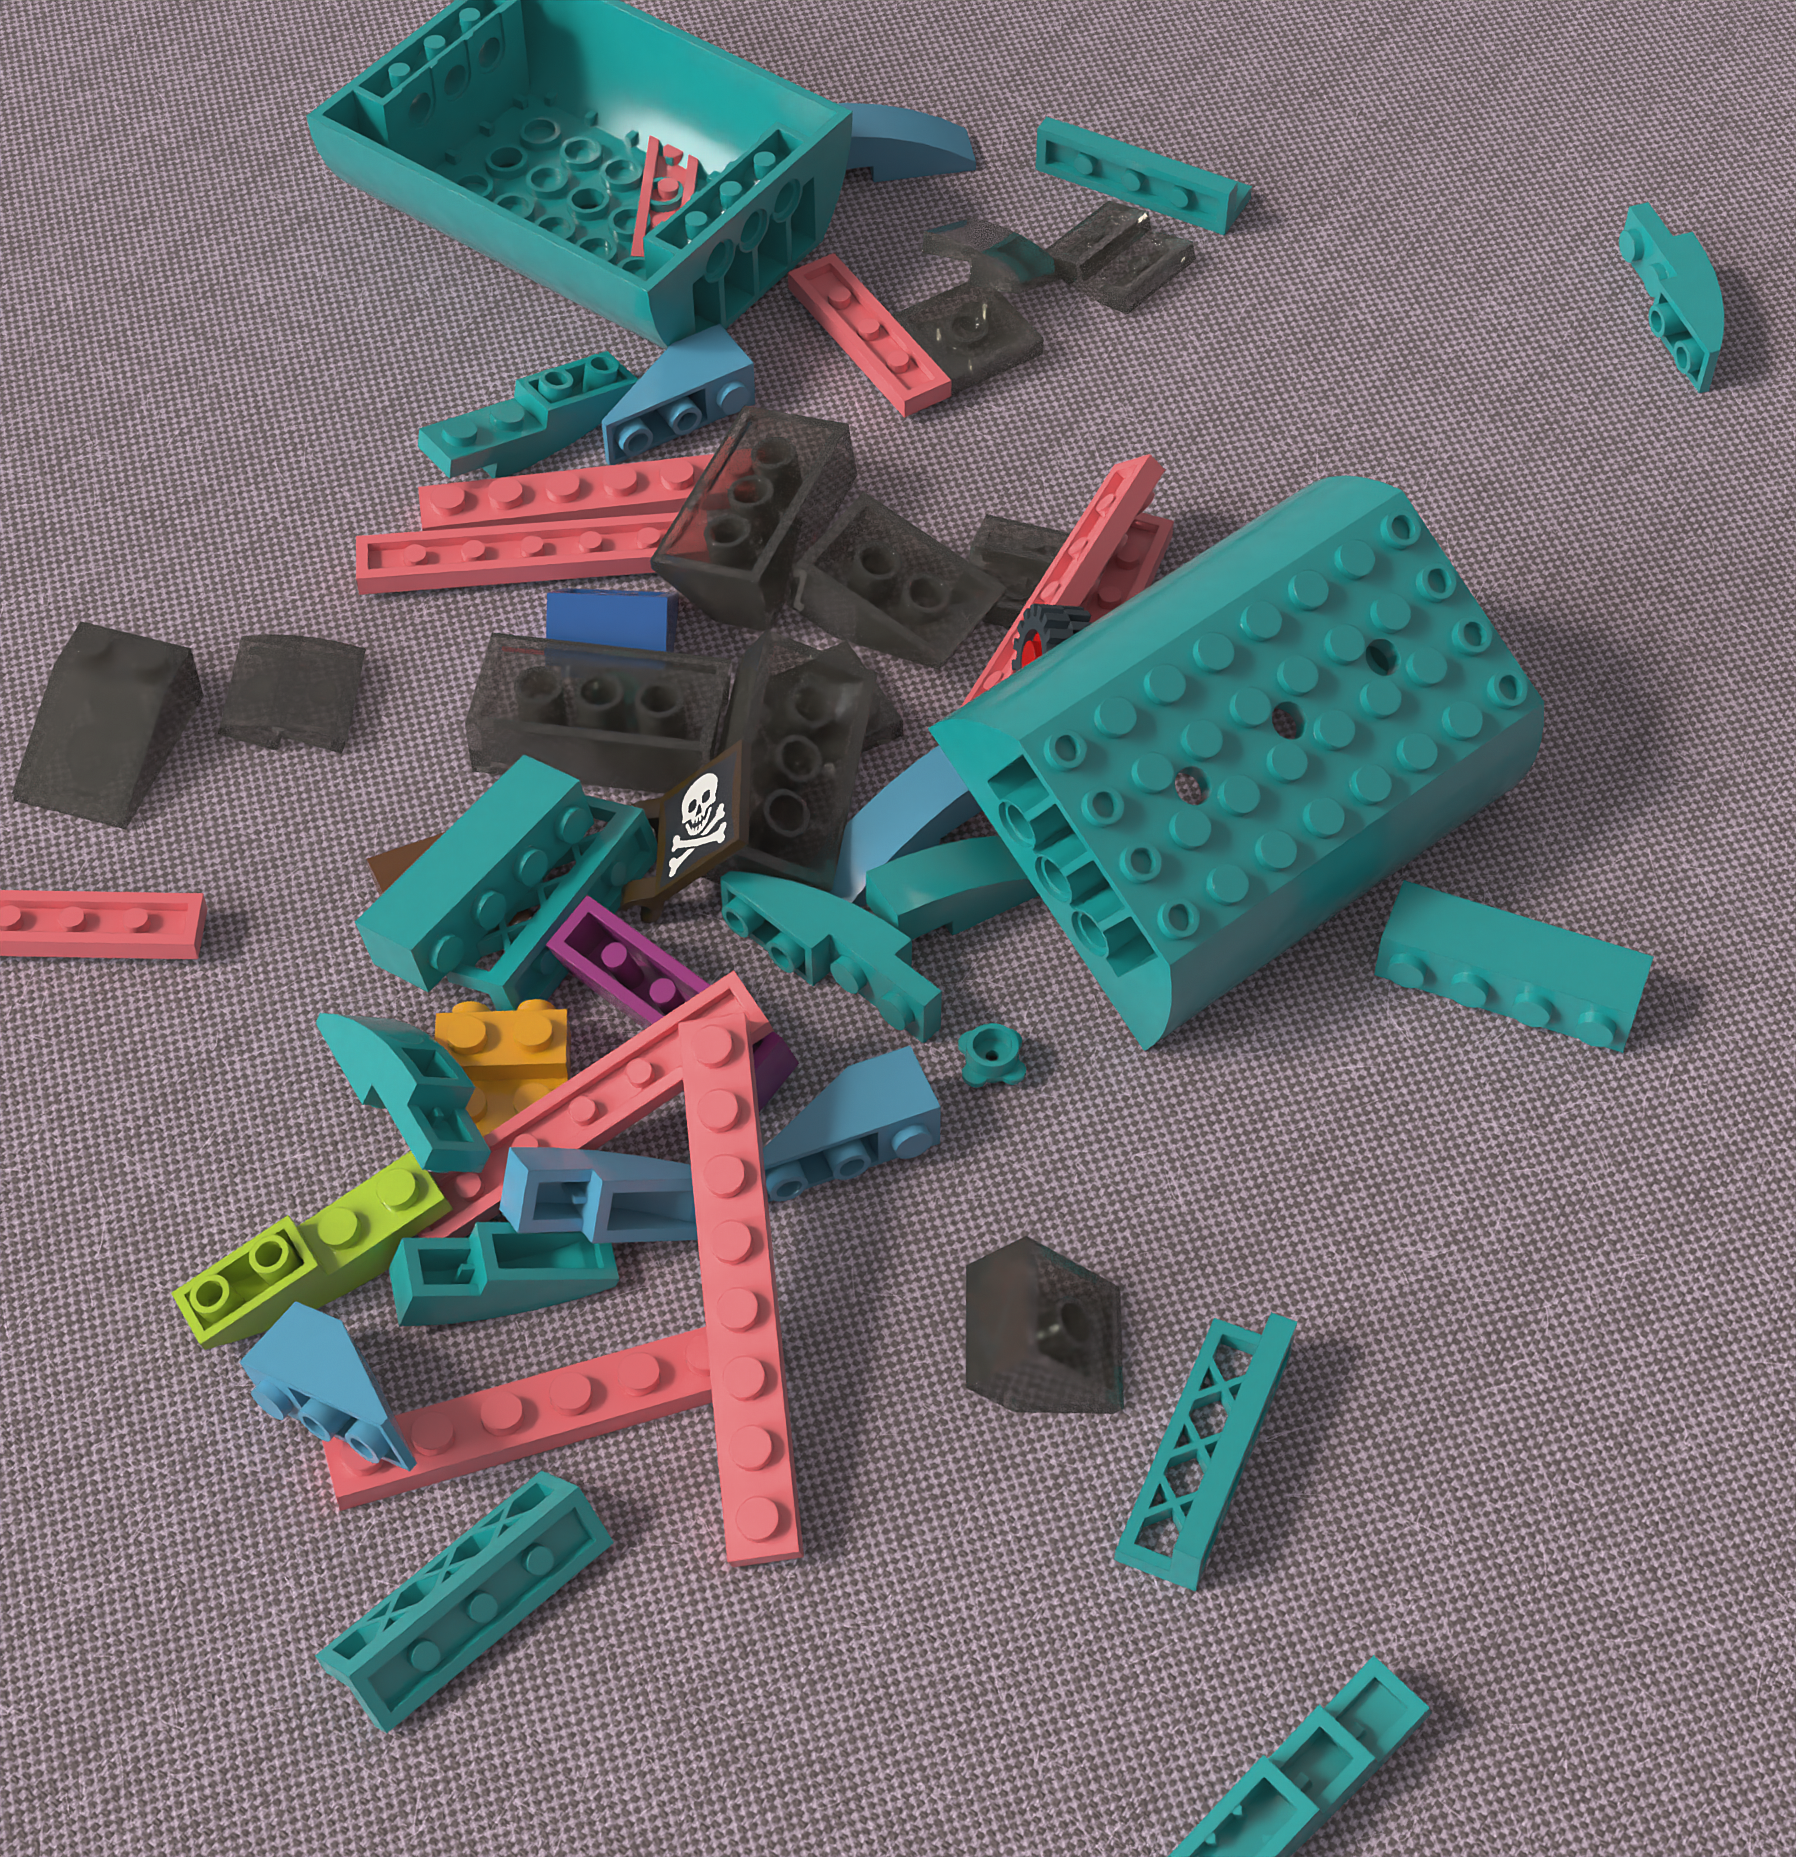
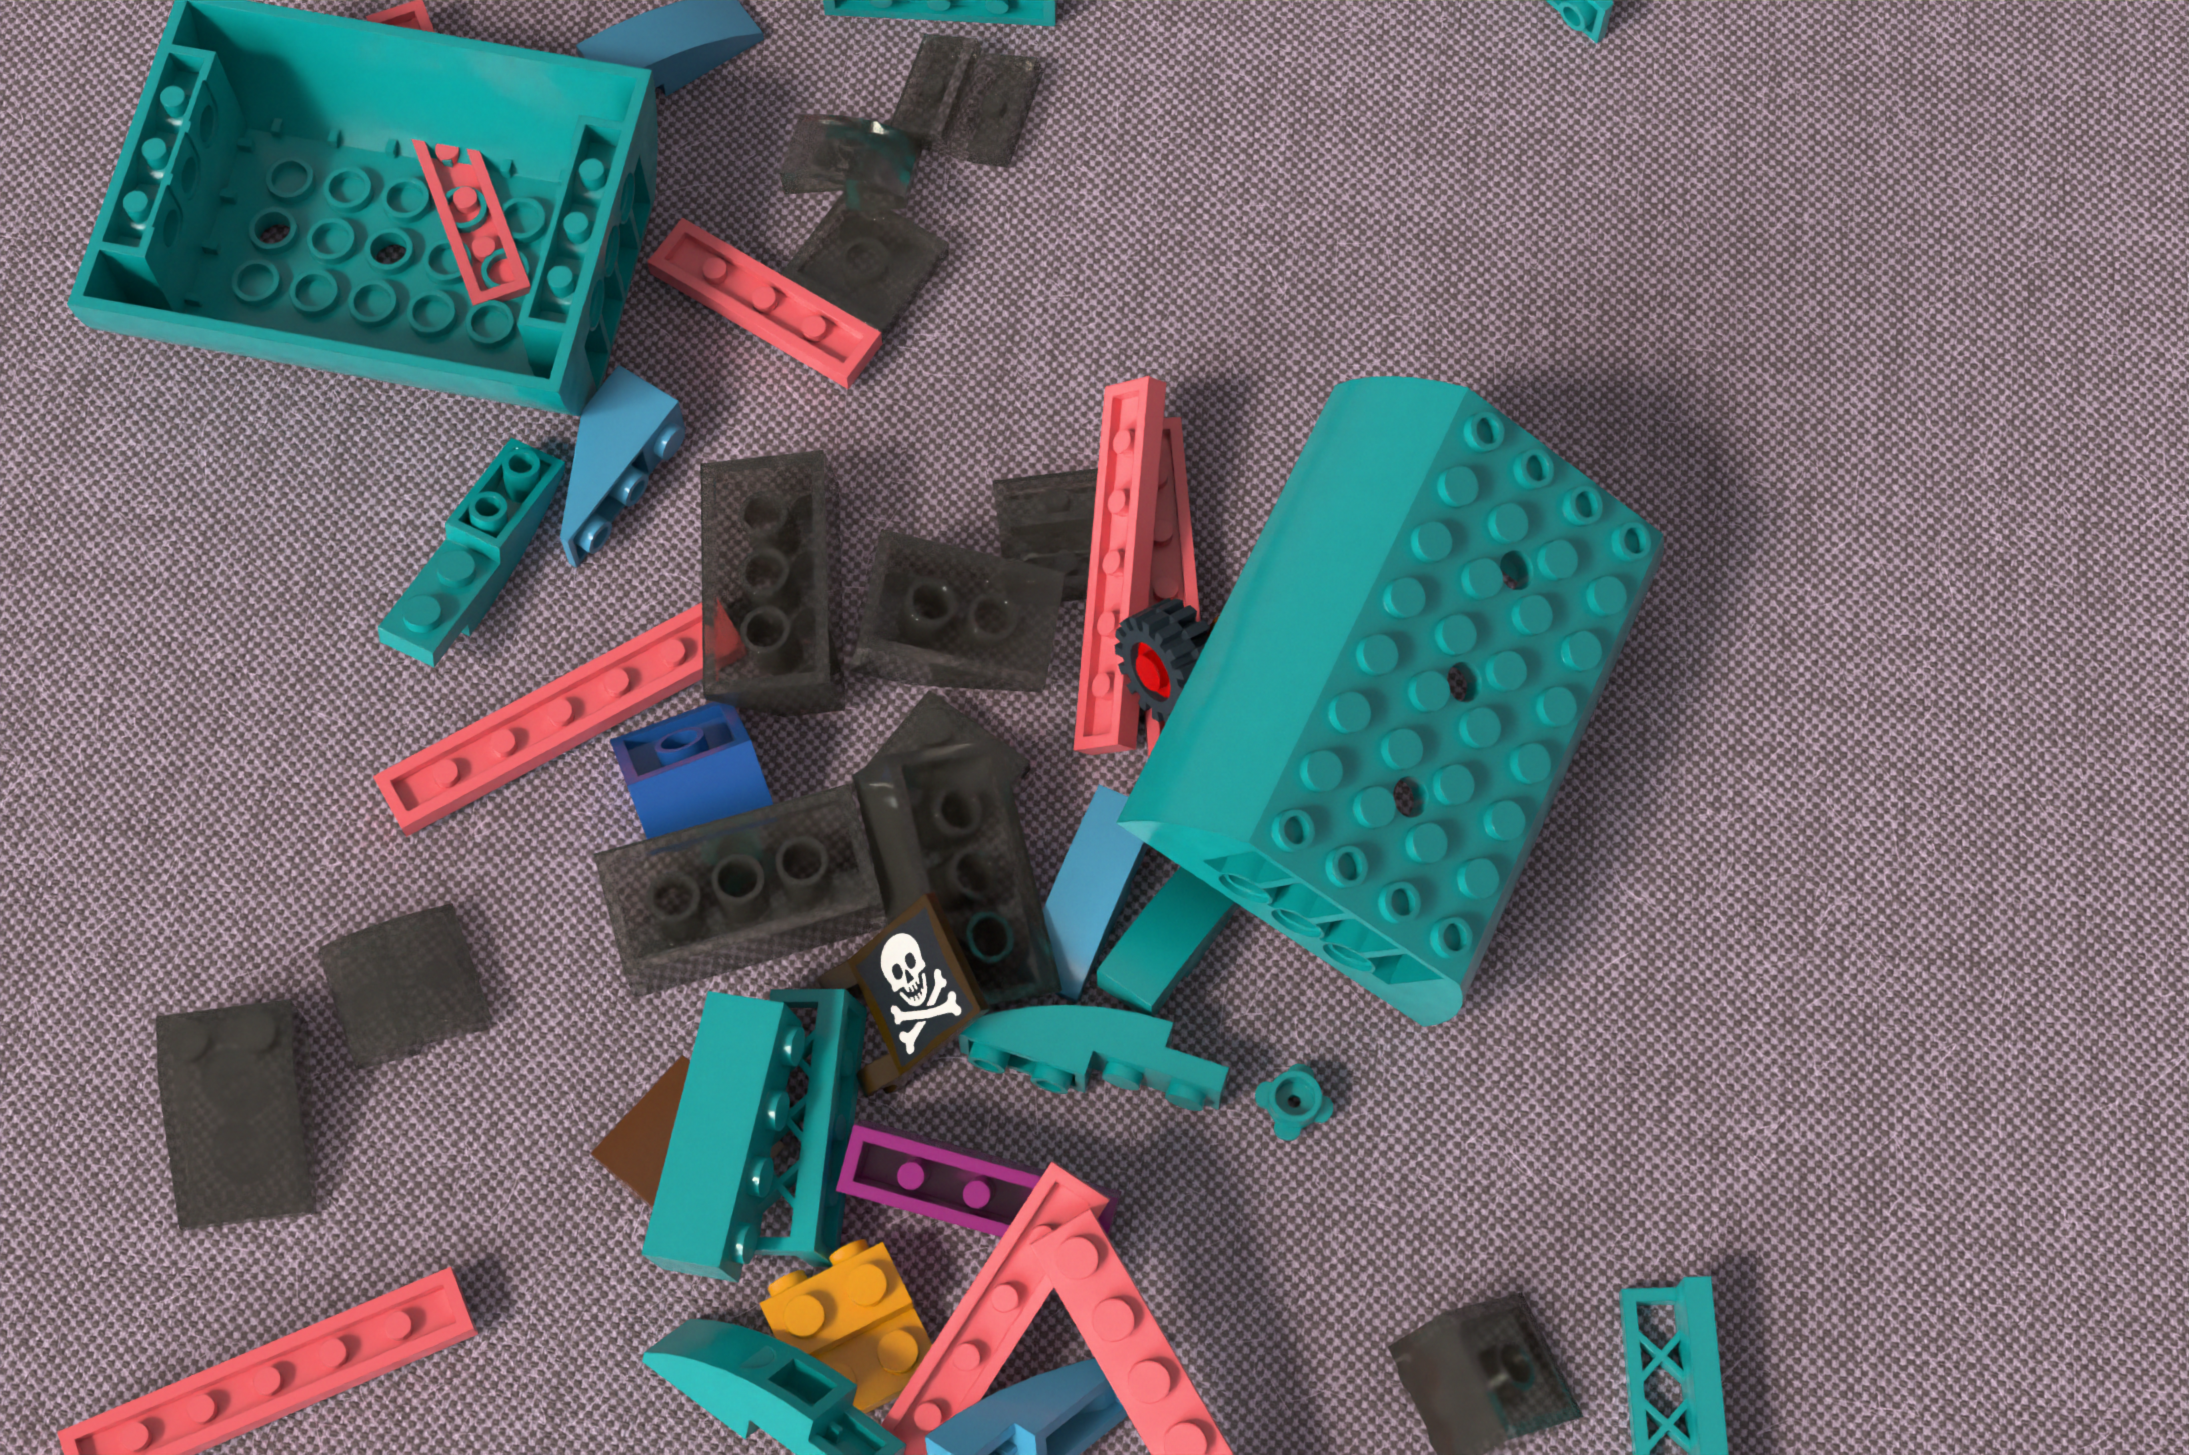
camera: 25 degrees left, 15 degrees up
(563, 495) = (558, 629): coral plate -> none
(858, 1121) = (1216, 1225): dark azure slope -> none
(1512, 966) = (1720, 798): teal brick -> none

